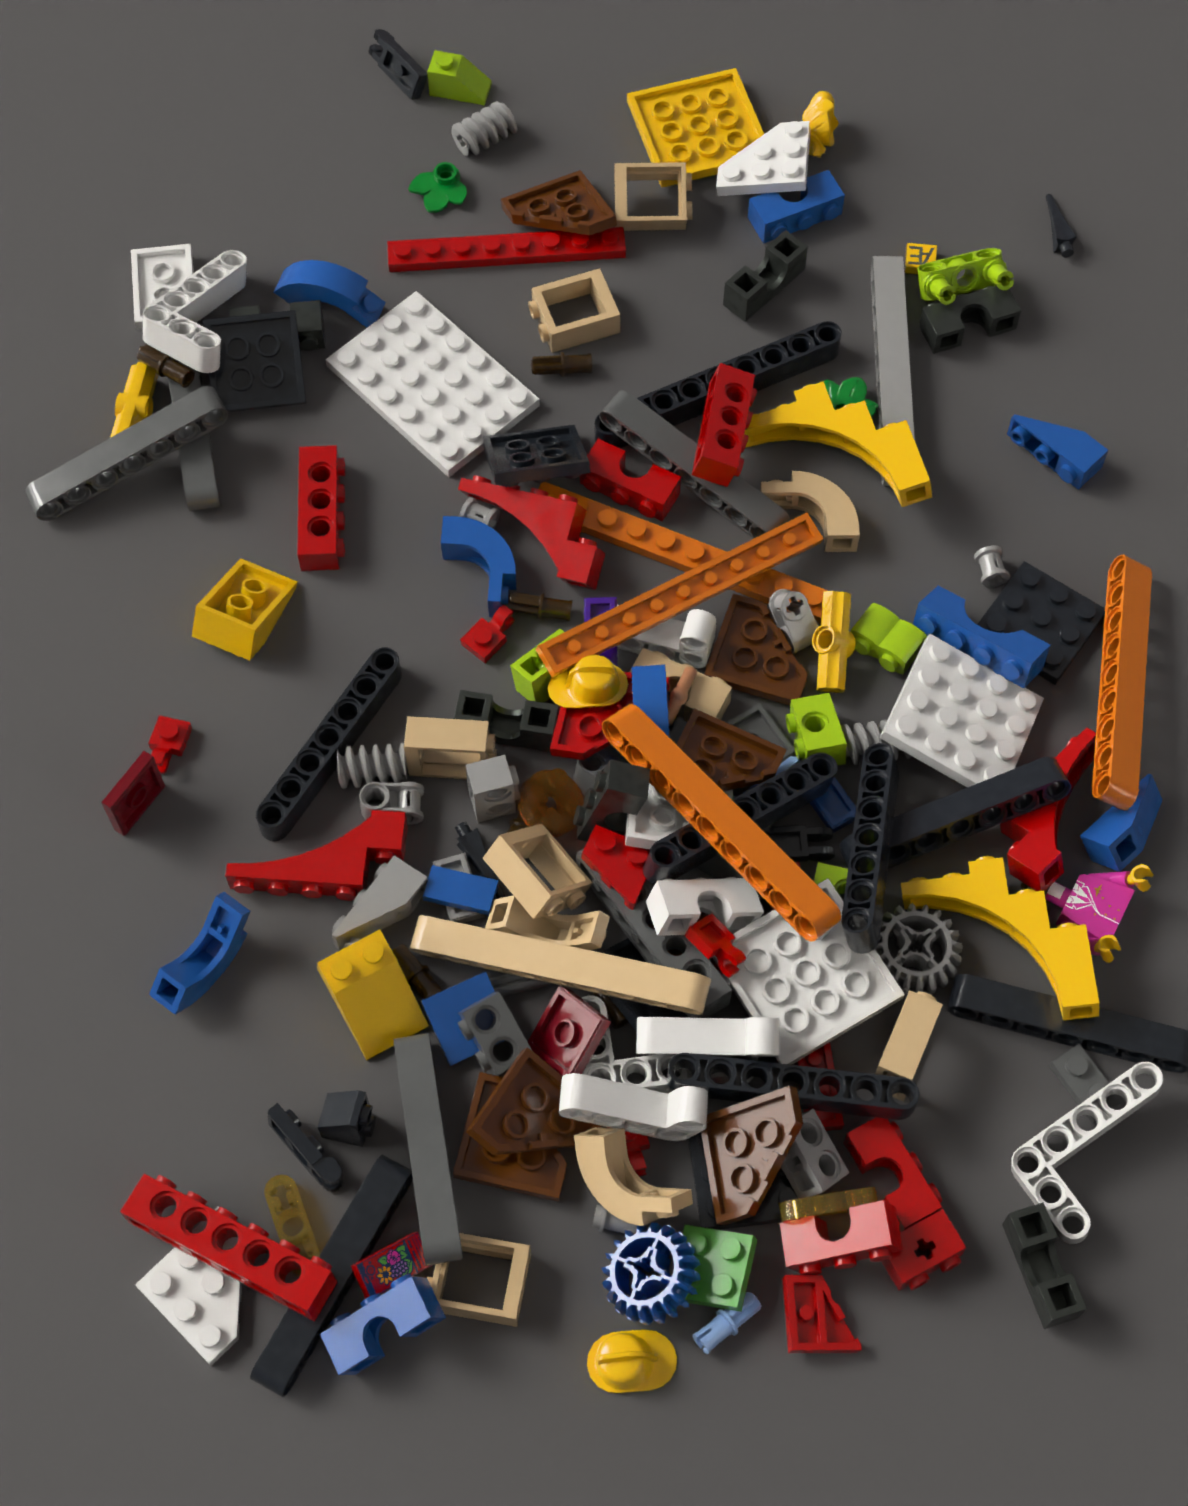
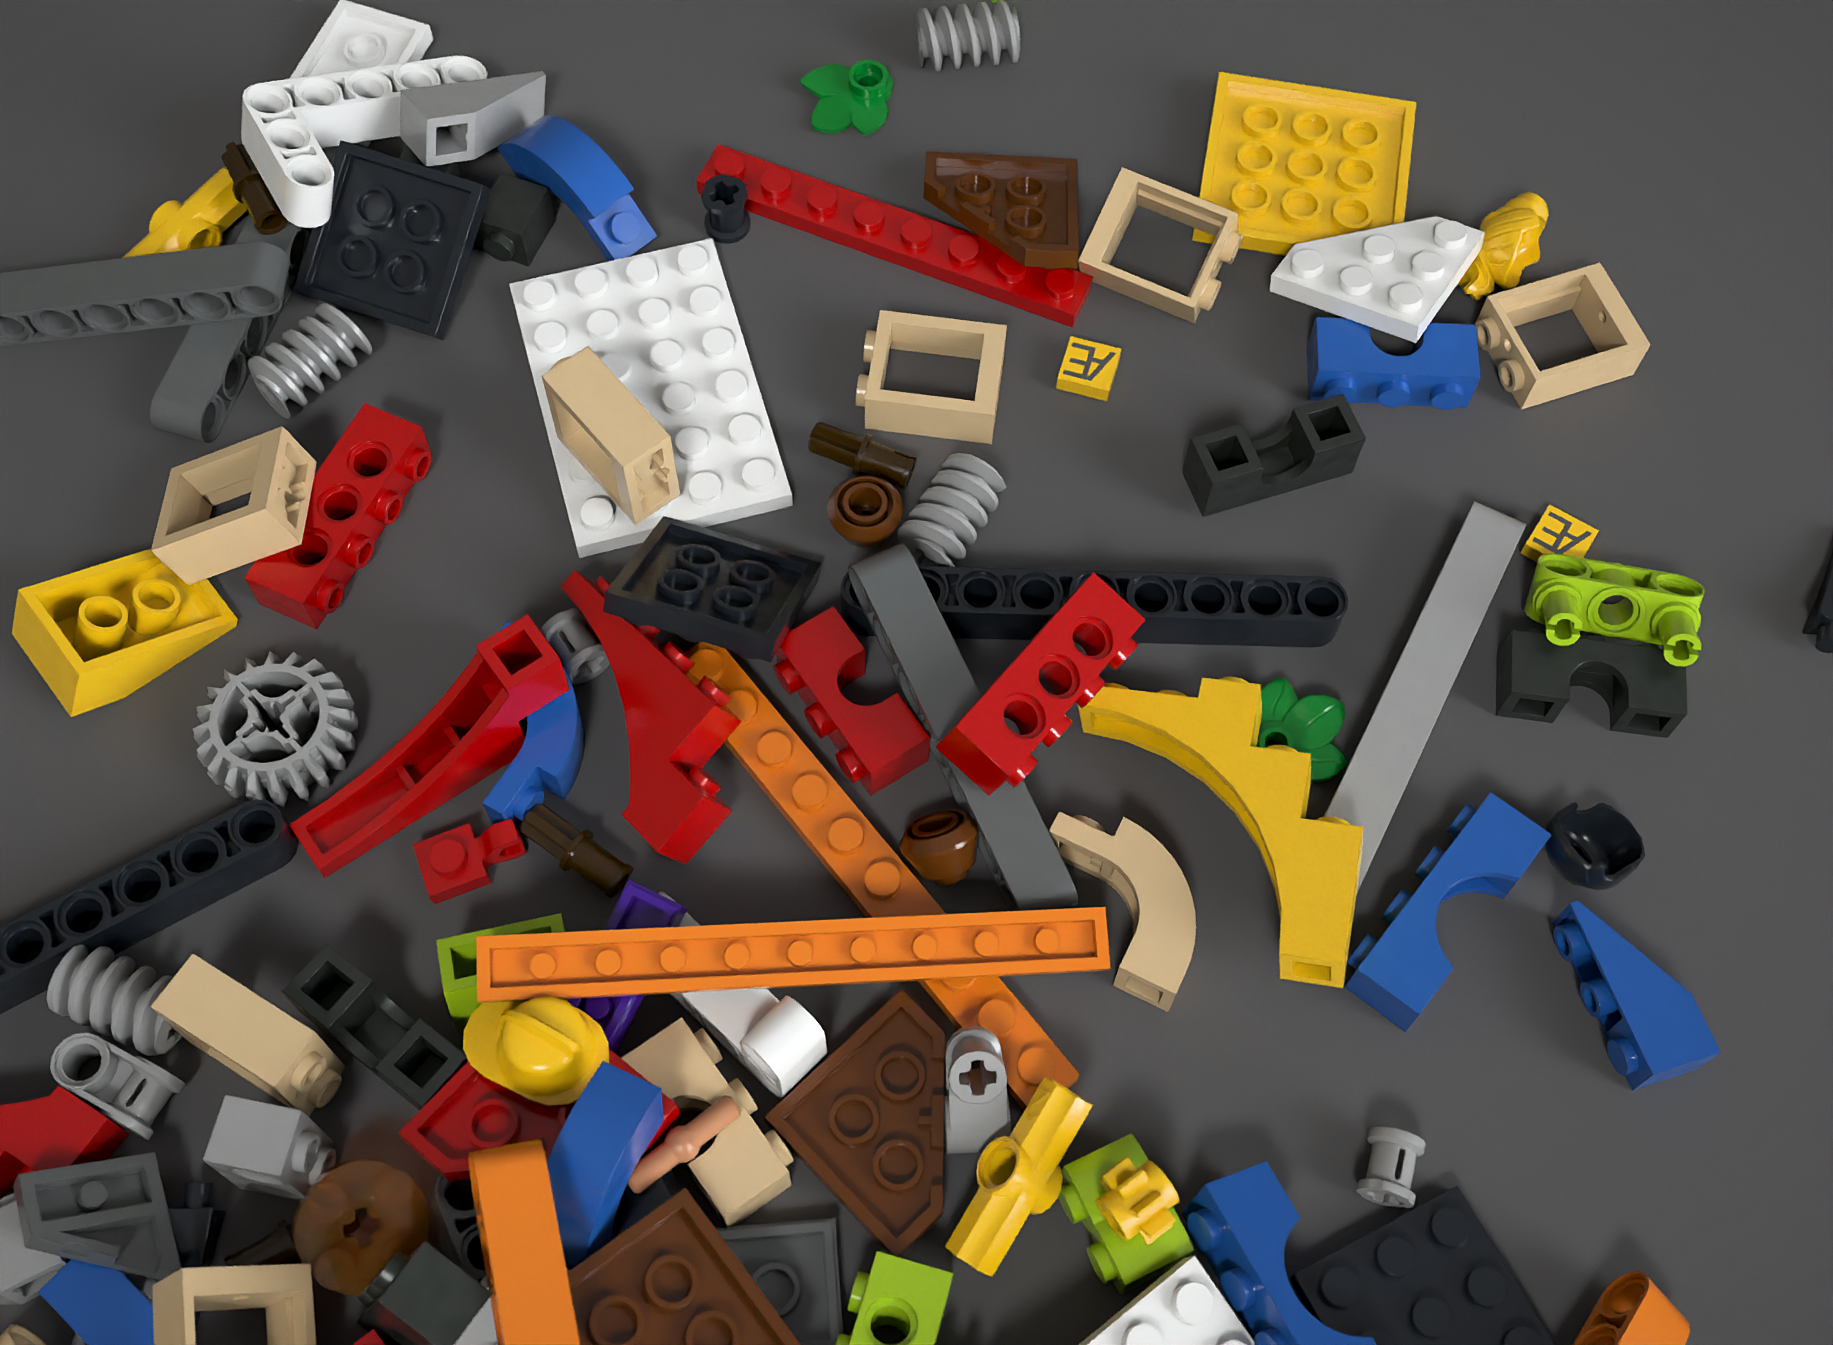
camera: 25 degrees right, 0 degrees up
(248, 440) = (306, 357): none -> light grey piece
(252, 282) = (469, 116): none -> light grey slope
(282, 537) = (280, 486): none -> tan window
(349, 604) = (290, 698): none -> light grey gear
(414, 270) = (725, 201): none -> black bush
(432, 850) = (100, 1215): none -> dark grey wing
(442, 403) = (611, 434): none -> tan window
(454, 585) = (447, 752): none -> red arch
(582, 389) = (865, 510): none -> reddish brown cone
(625, 367) = (951, 511): none -> light grey piece
(647, 274) = (1088, 368): none -> yellow tile
(713, 523) = (941, 845): none -> reddish brown cone
(874, 132) = (1600, 313): none -> tan window
(893, 621) = (1137, 1200): none -> yellow gear
(953, 476) = (1407, 962): none -> blue arch
(1008, 390) = (1593, 846): none -> black hair

